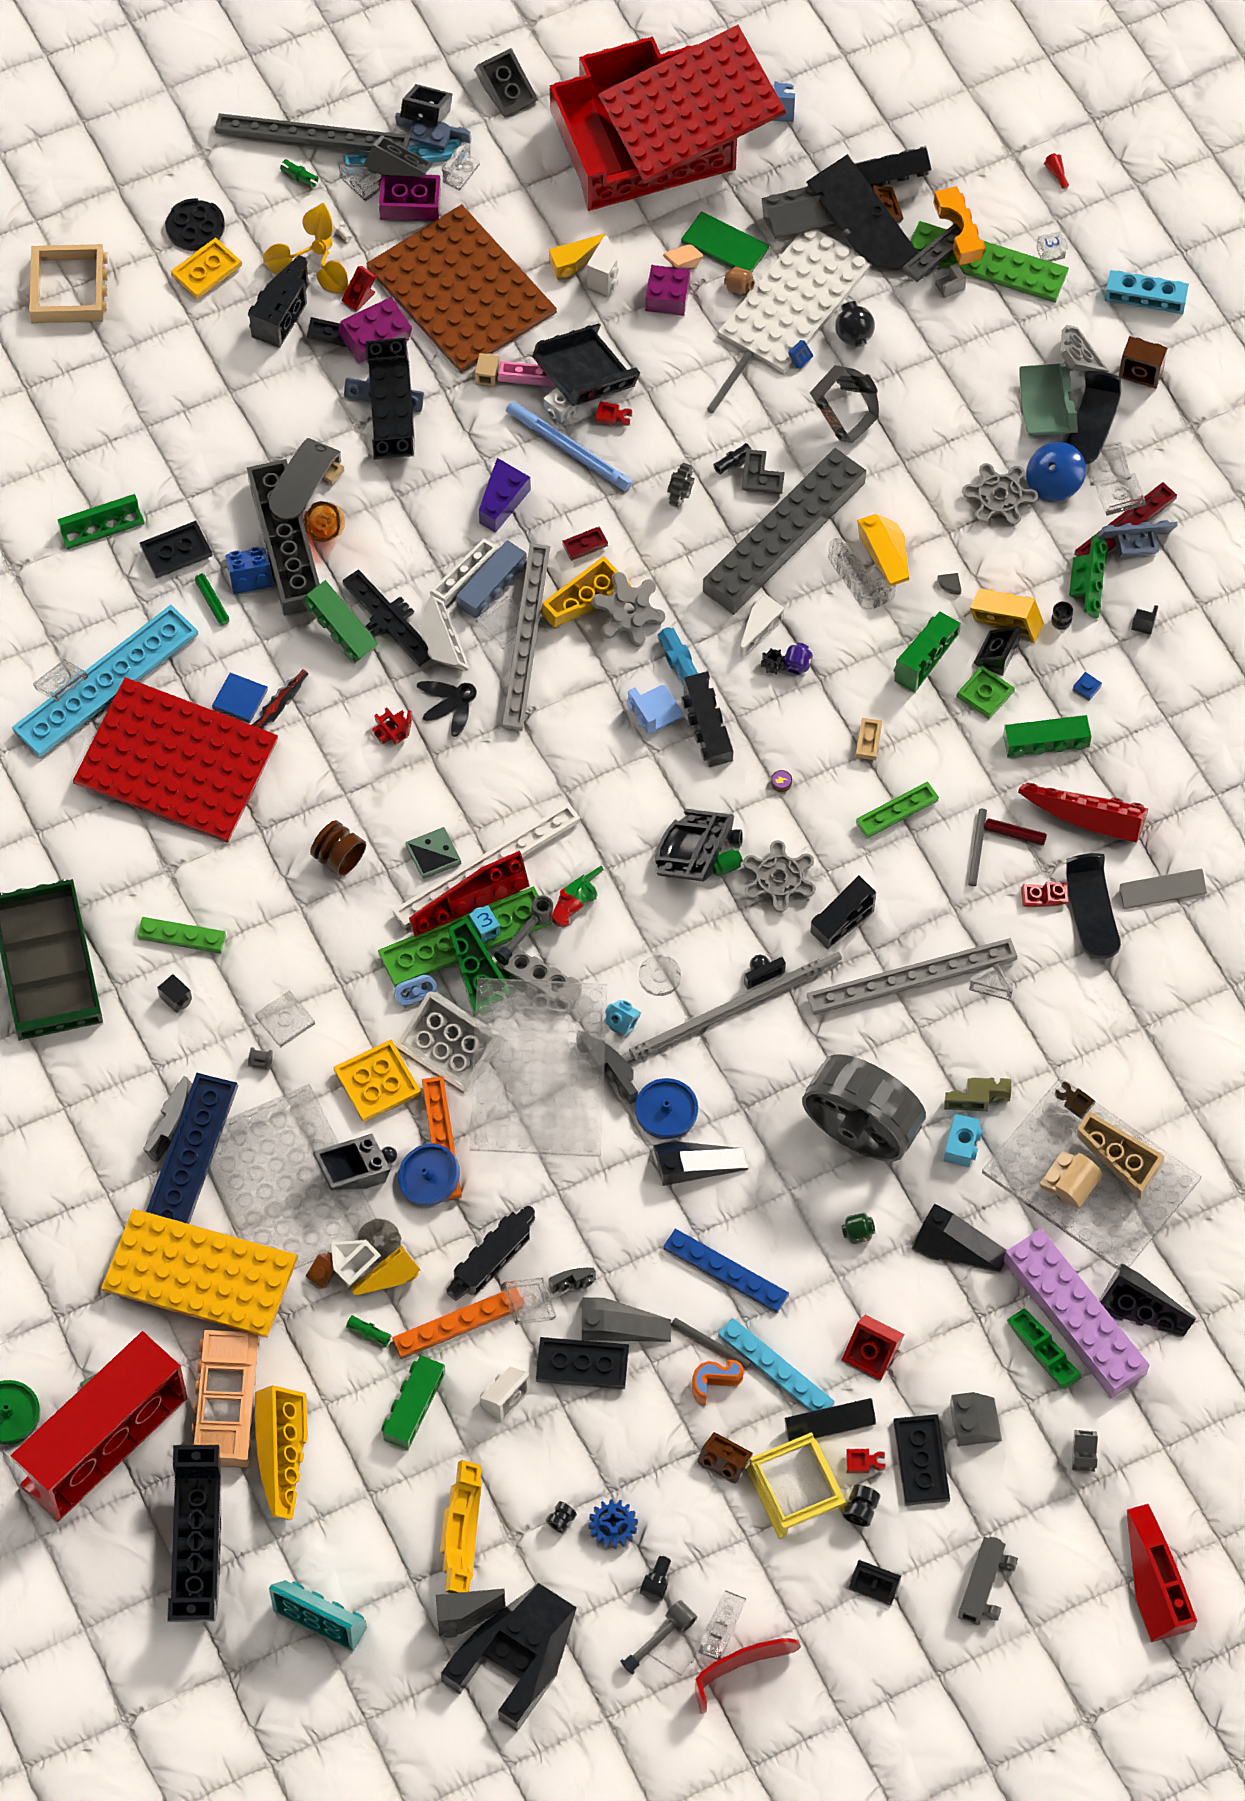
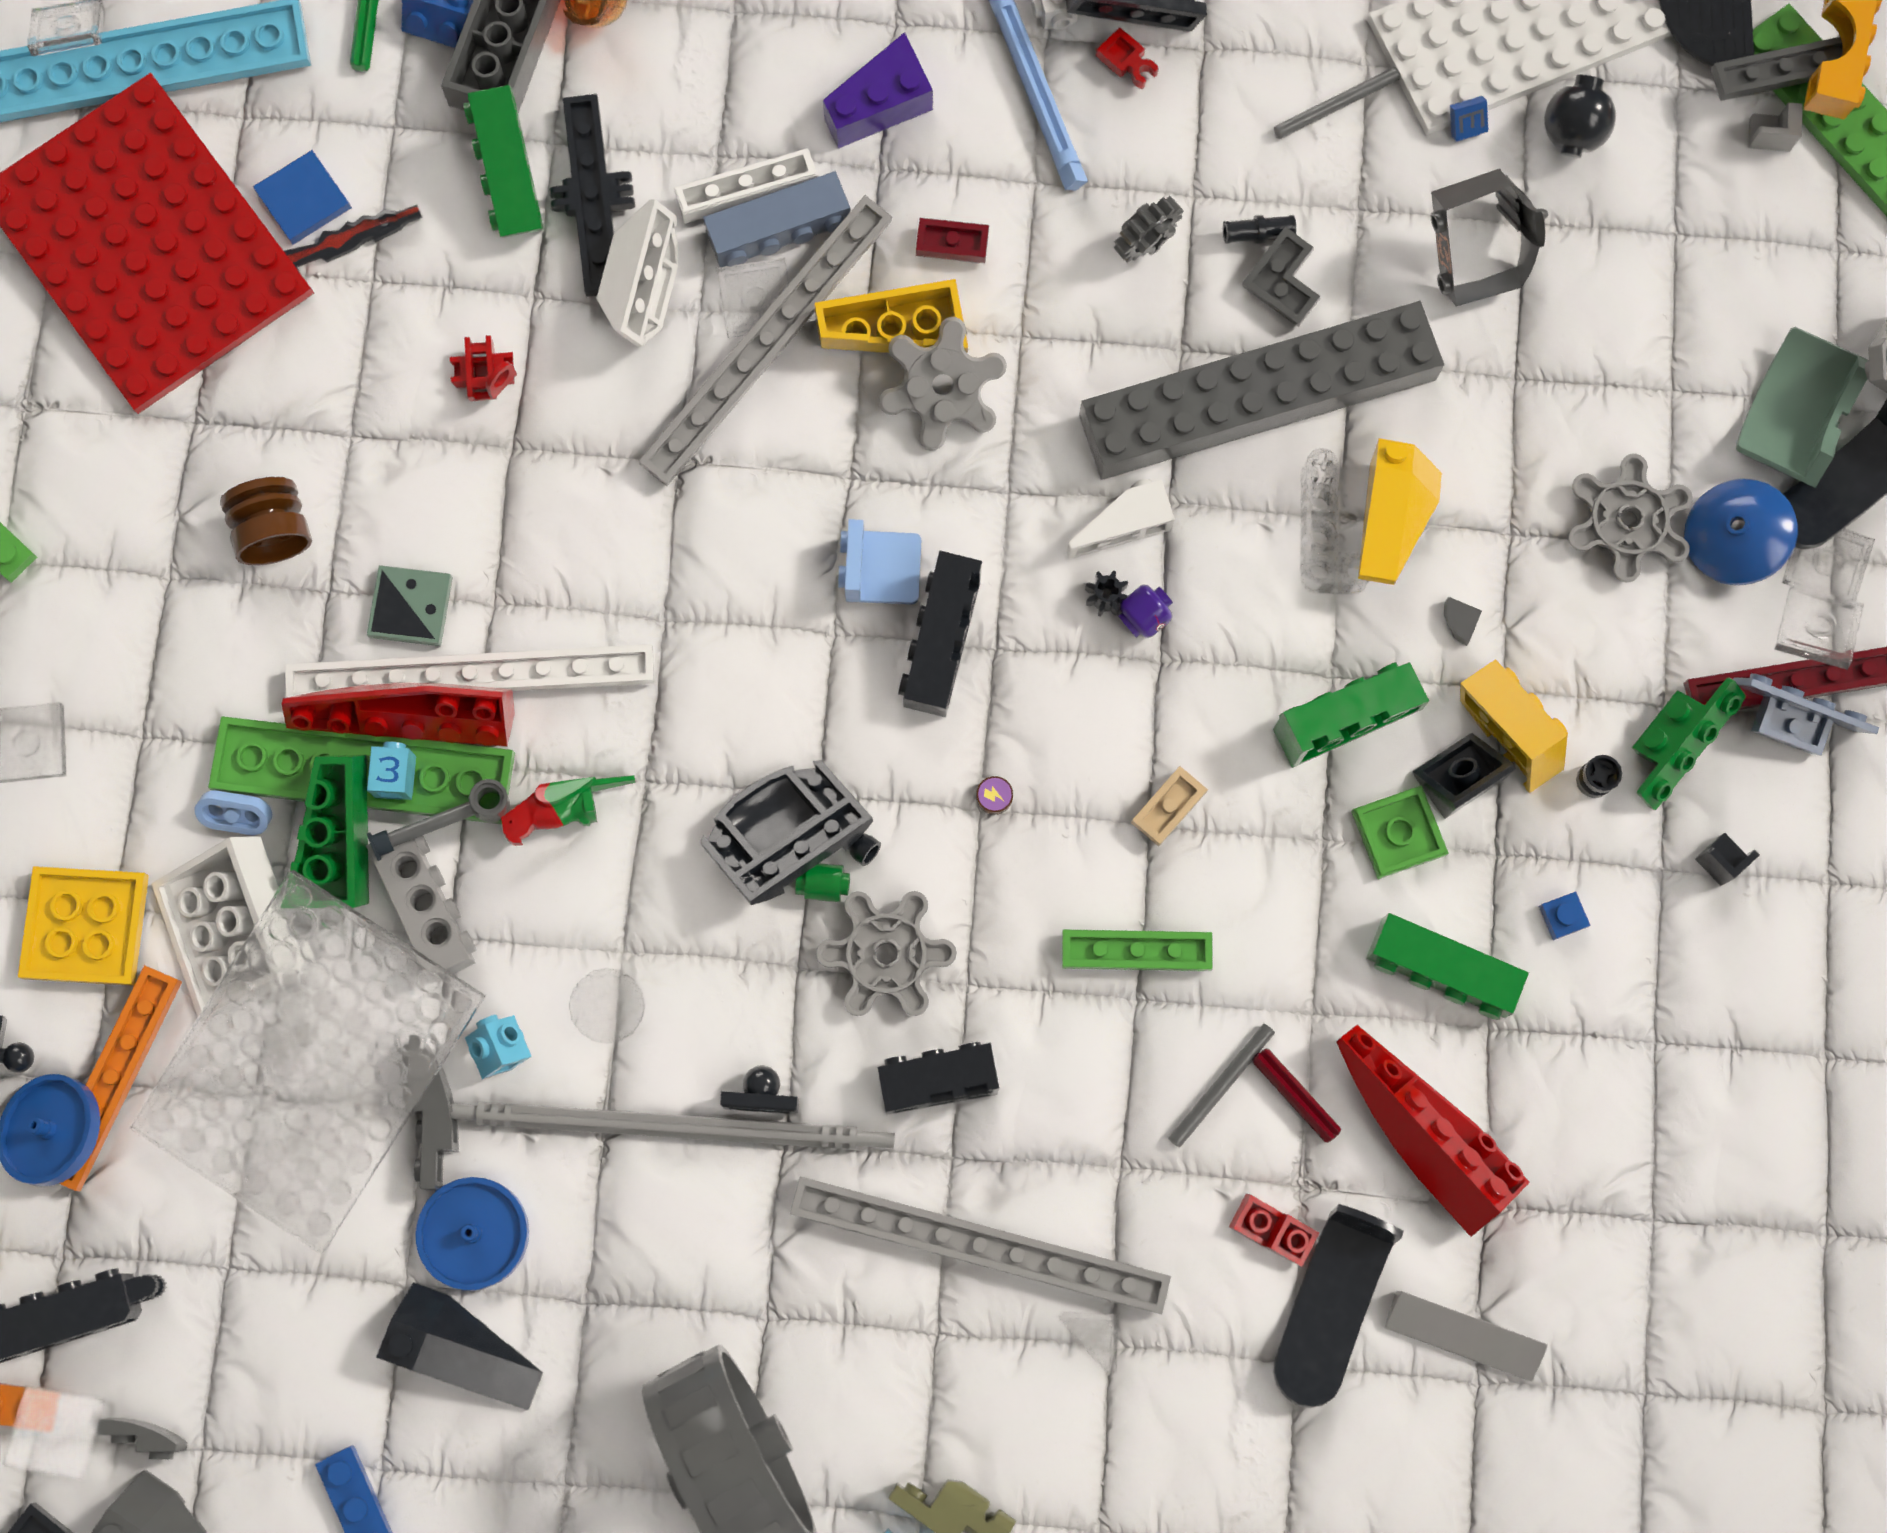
camera: 30 degrees right, 15 degrees up
(445, 707) = (604, 382): black plant -> none
(676, 653) = (970, 502): dark azure piece -> none

